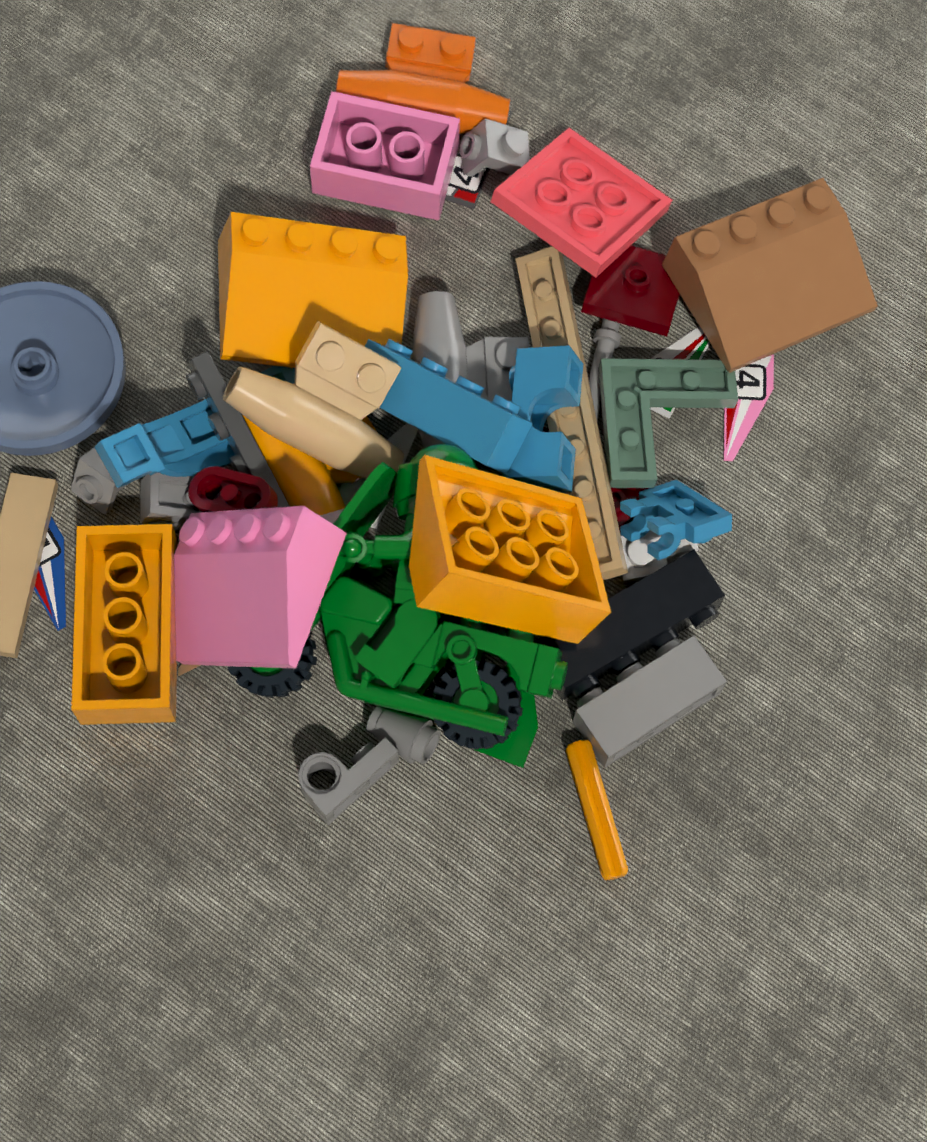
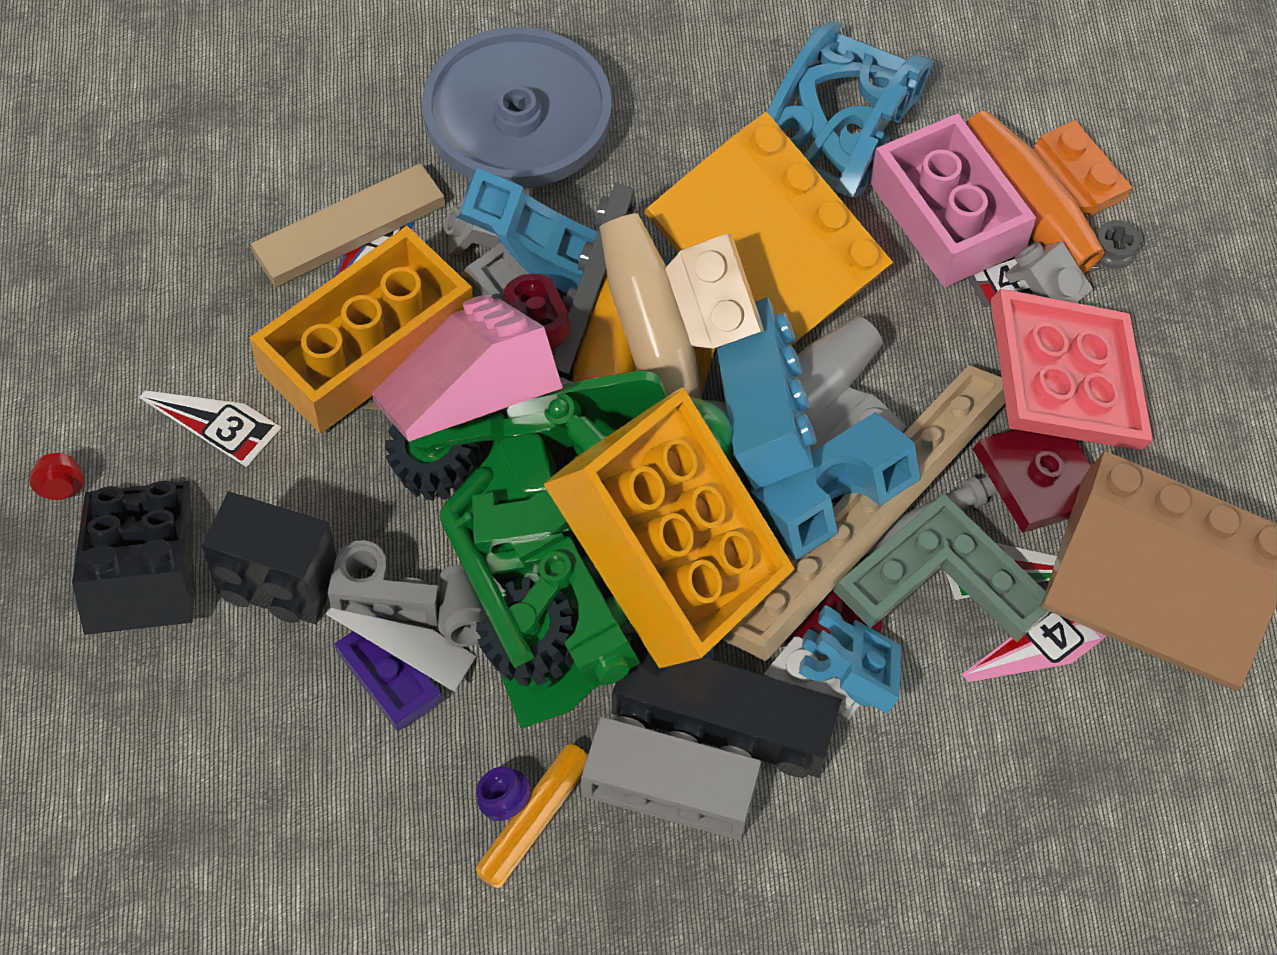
camera: 50 degrees right, 10 degrees down
(46, 935) = (56, 476): none -> red plate
(100, 783) = (224, 424): none -> sticker
(165, 925) = (135, 558): none -> black slope
(210, 117) = (835, 56): none -> dark azure fence
(265, 833) = (270, 558): none -> black brick
(406, 789) = (412, 644): none -> white sticker
(411, 822) = (391, 683): none -> dark purple plate
(508, 75) = (1129, 242): none -> dark grey bush
(555, 817) = (502, 793): none -> dark purple plate

